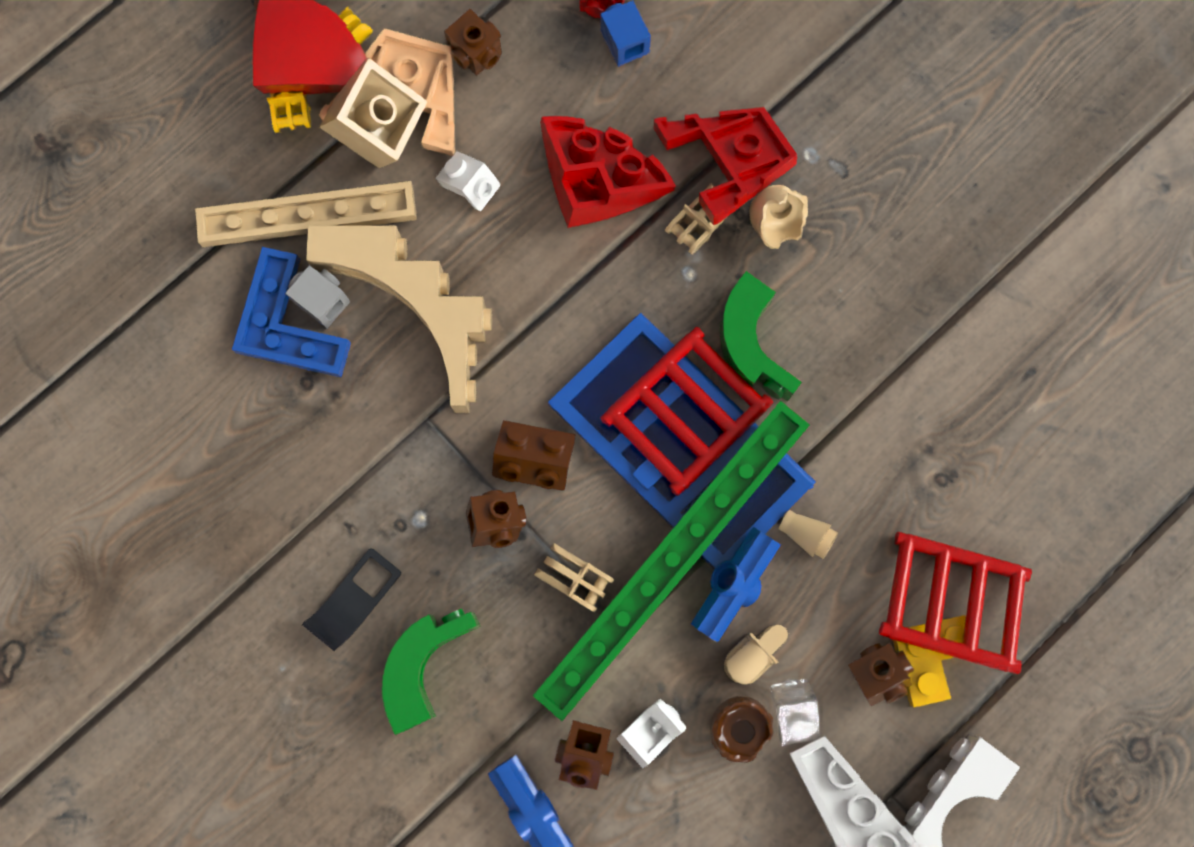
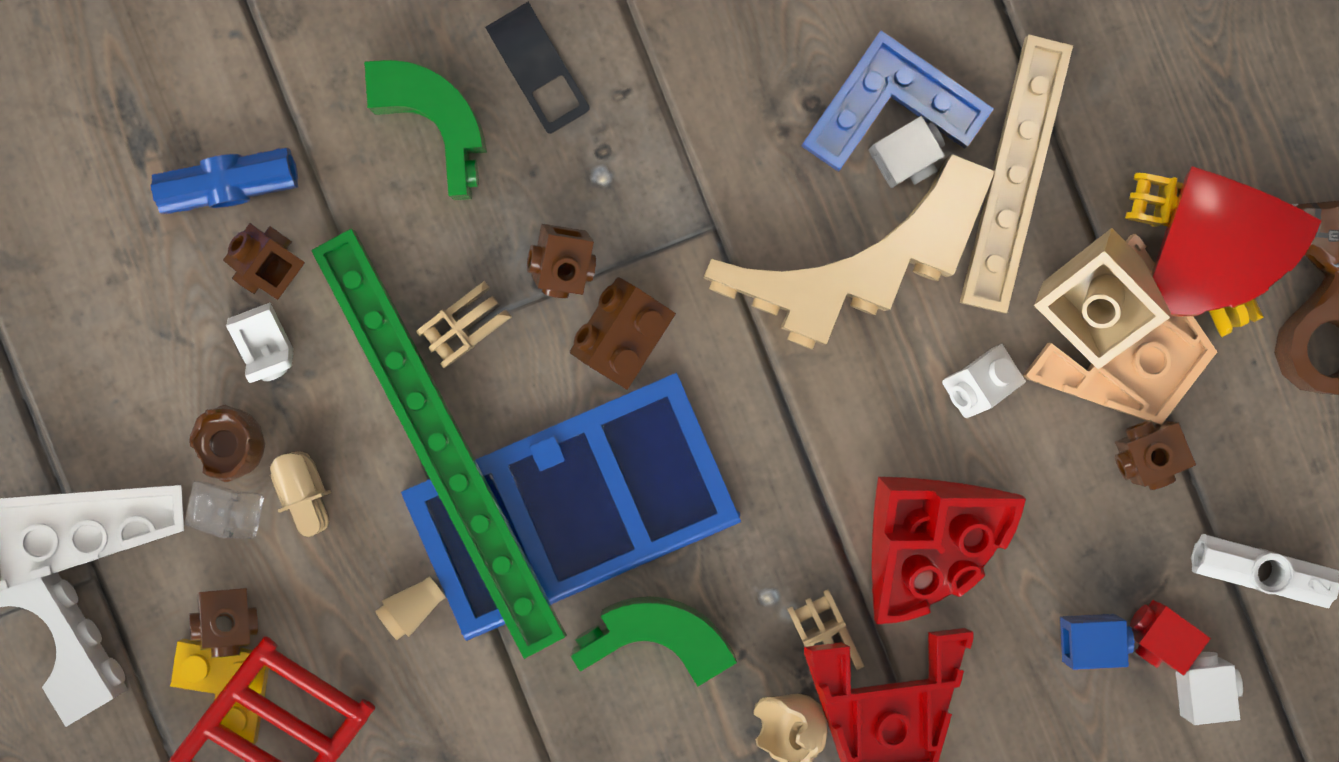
camera: 110 degrees right, 10 degrees up
(668, 366) = (661, 527): red bar -> none
(735, 584) = (384, 502): blue piece -> none

